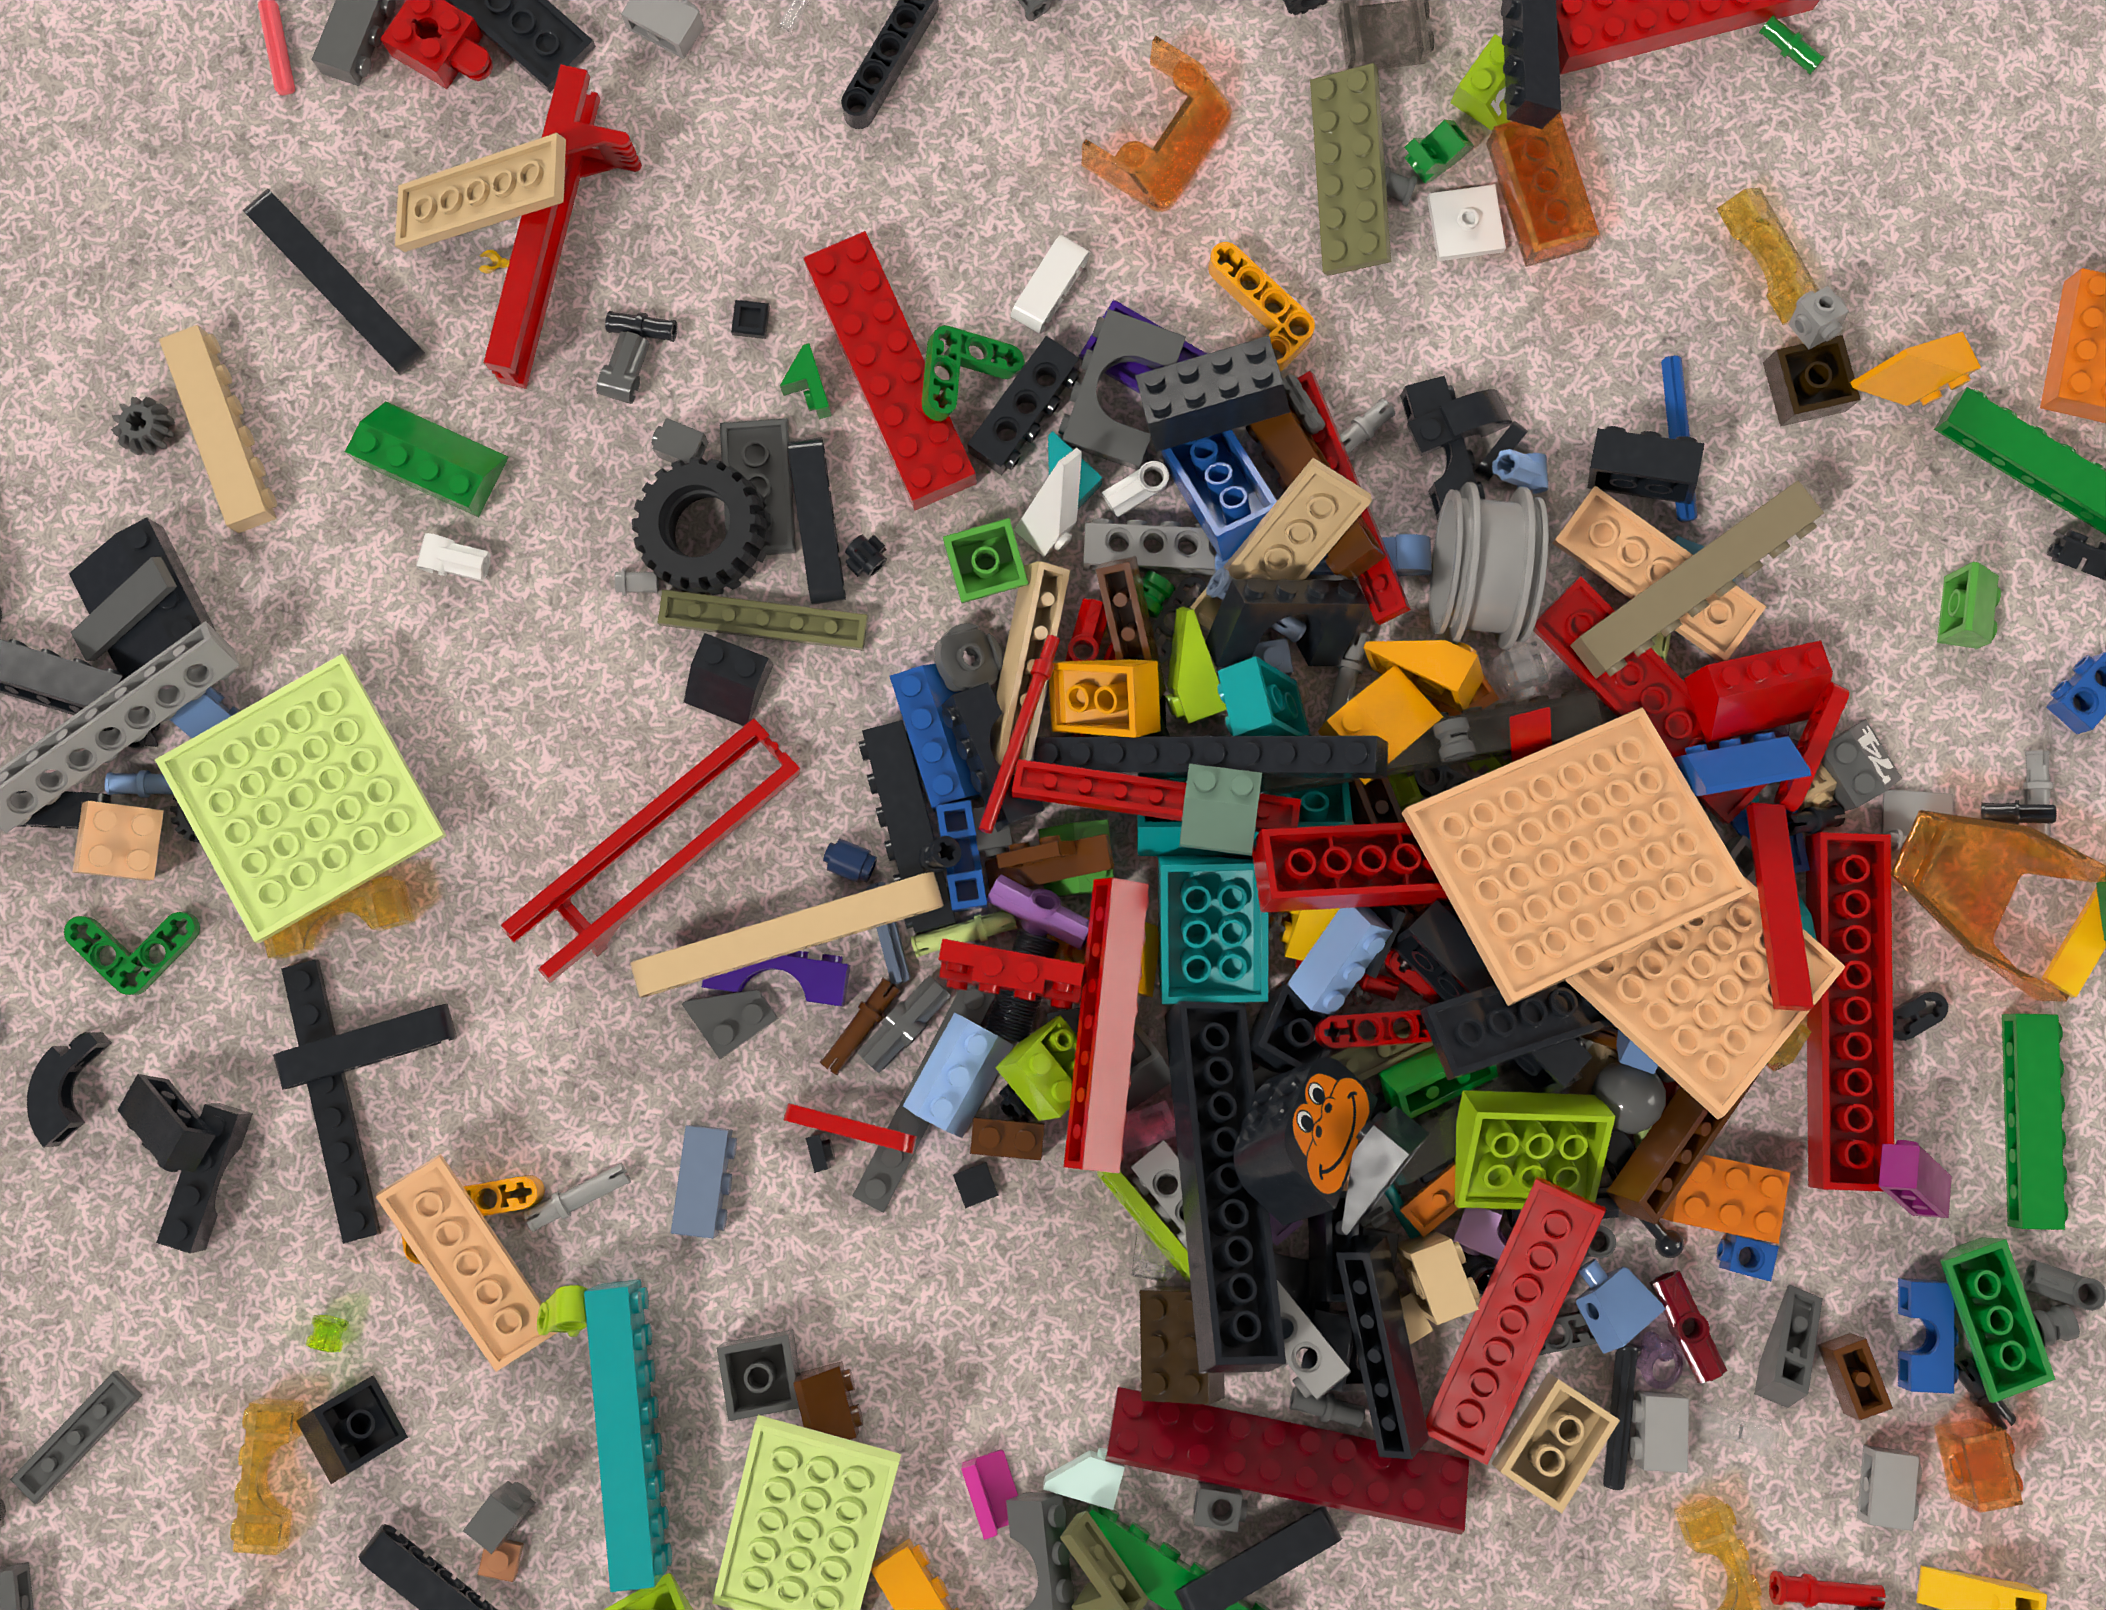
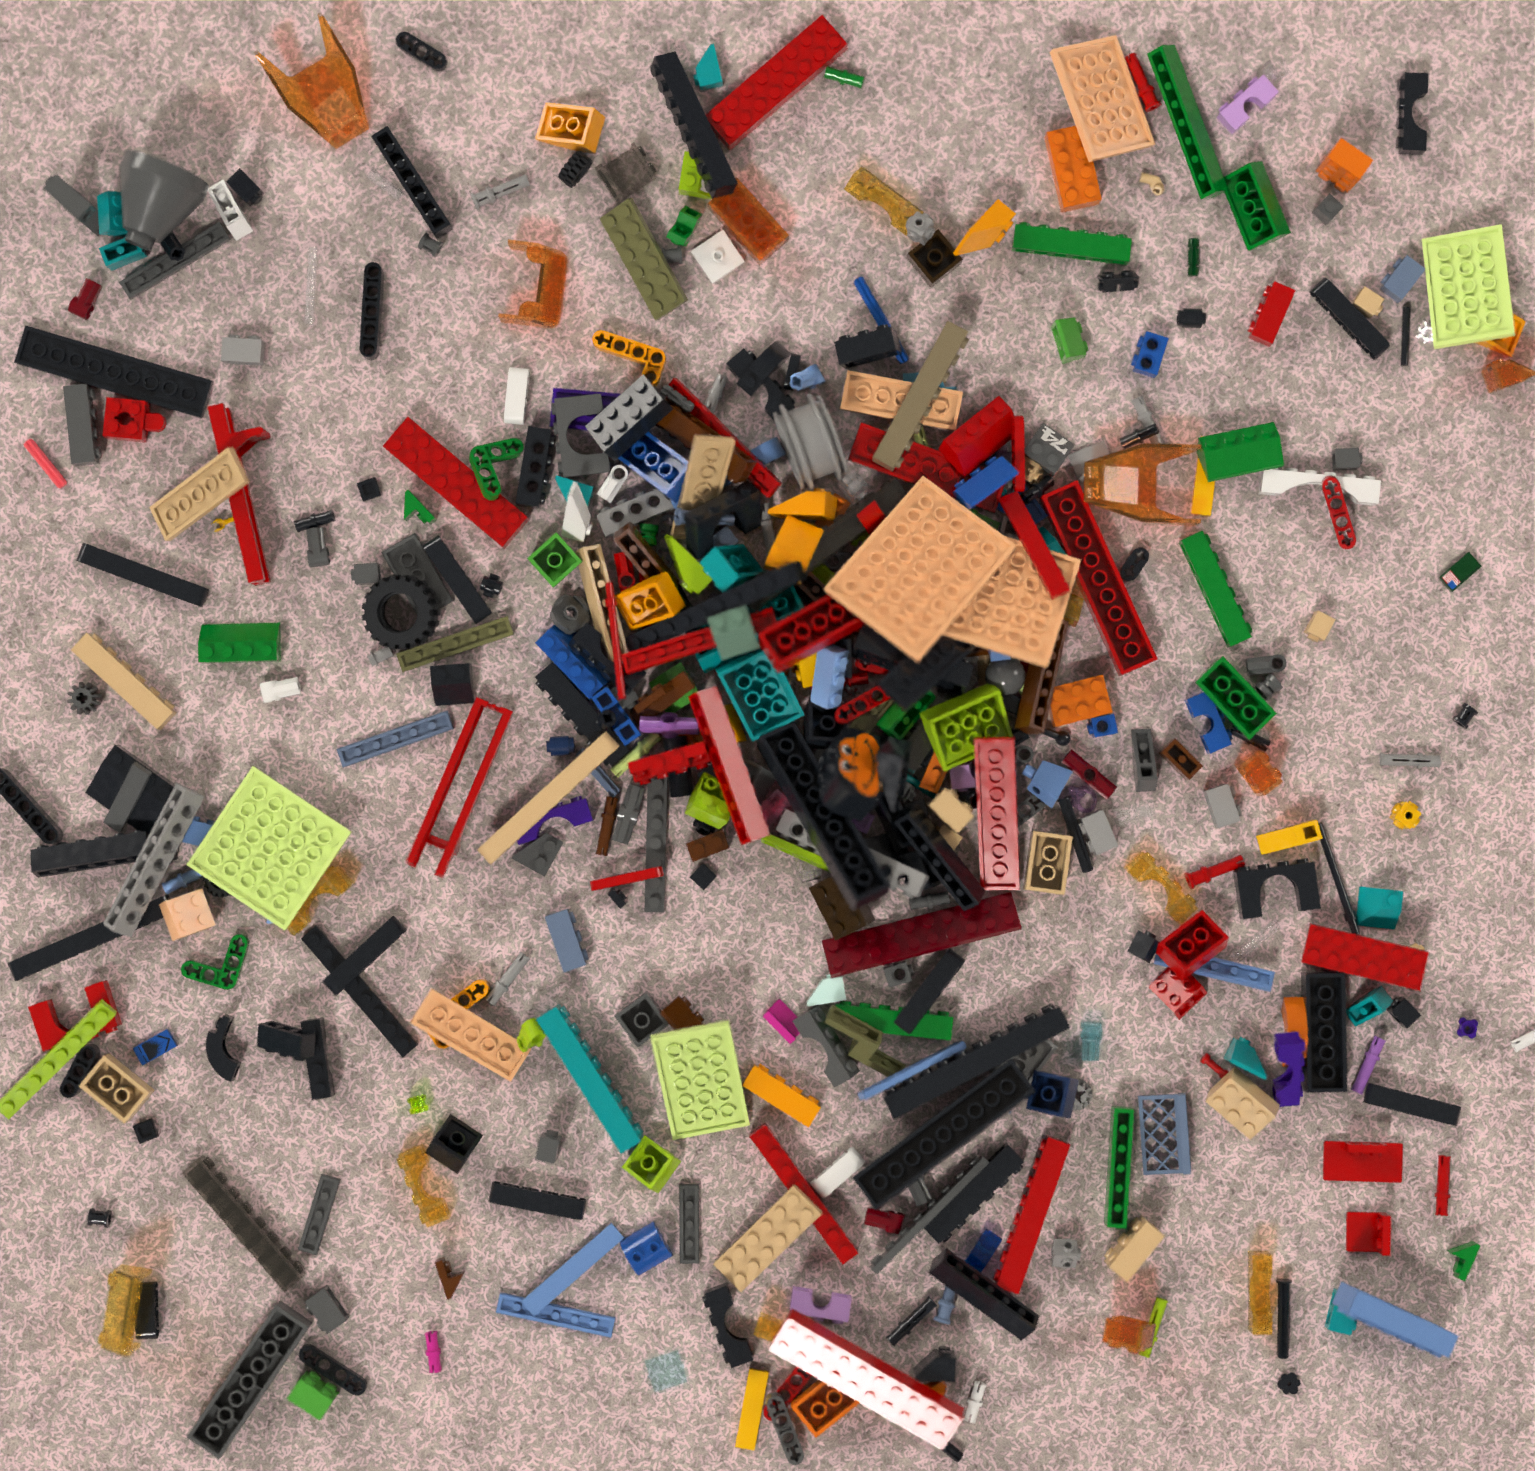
camera: 25 degrees left, 5 degrees up
(502, 1562) = (559, 1170): nougat plate -> none
(594, 723) = (395, 739): none -> sand blue tile
(957, 1076) = (667, 826): light blue slope -> none
(1454, 739) = (834, 539): dark grey wheel -> none
(1915, 1179) = (1164, 648): magenta brick -> none

